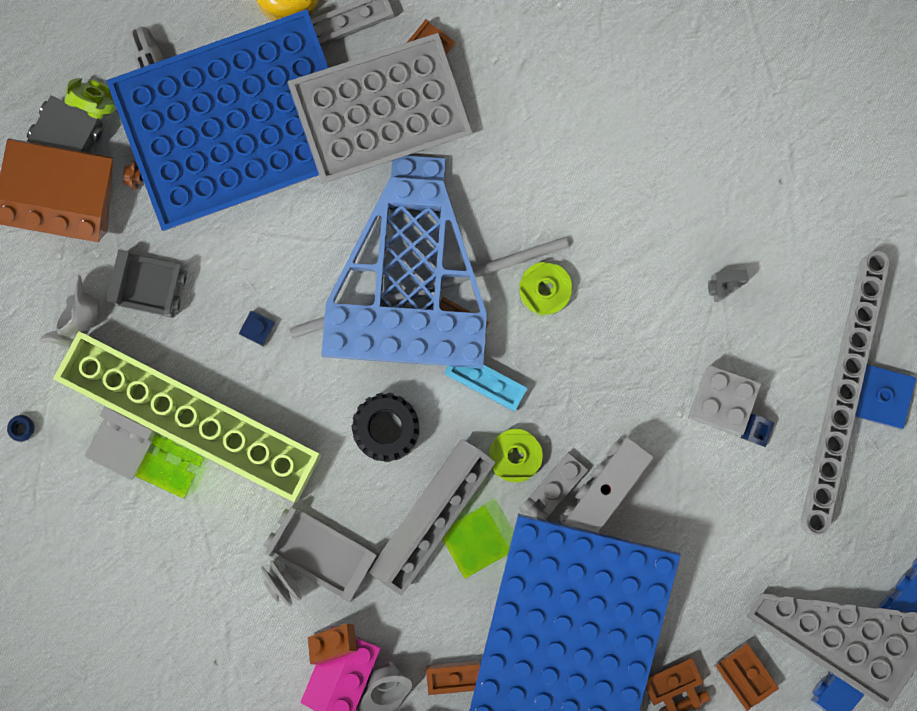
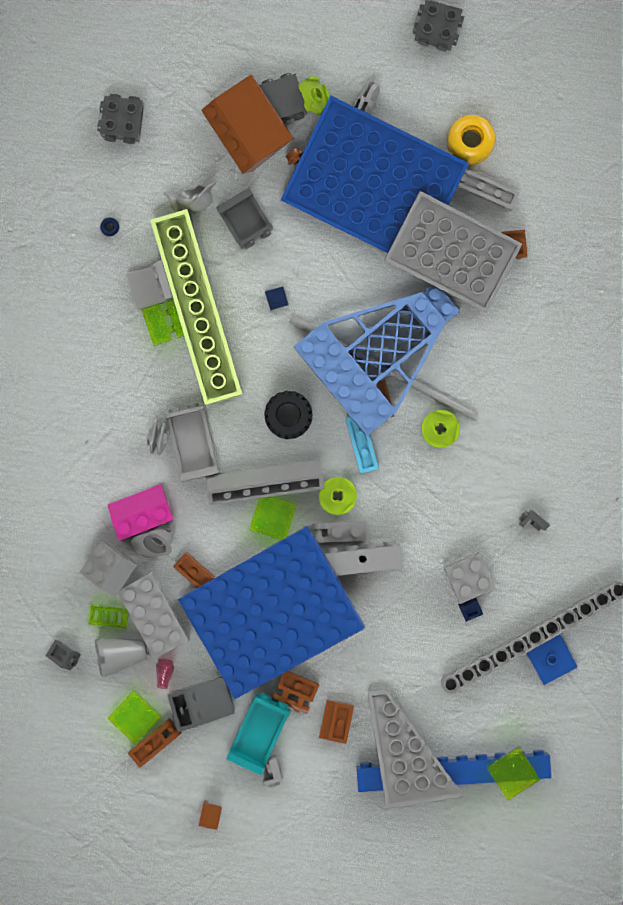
camera: 50 degrees right, 5 degrees up
(332, 644) = (152, 493): dark orange plate -> none

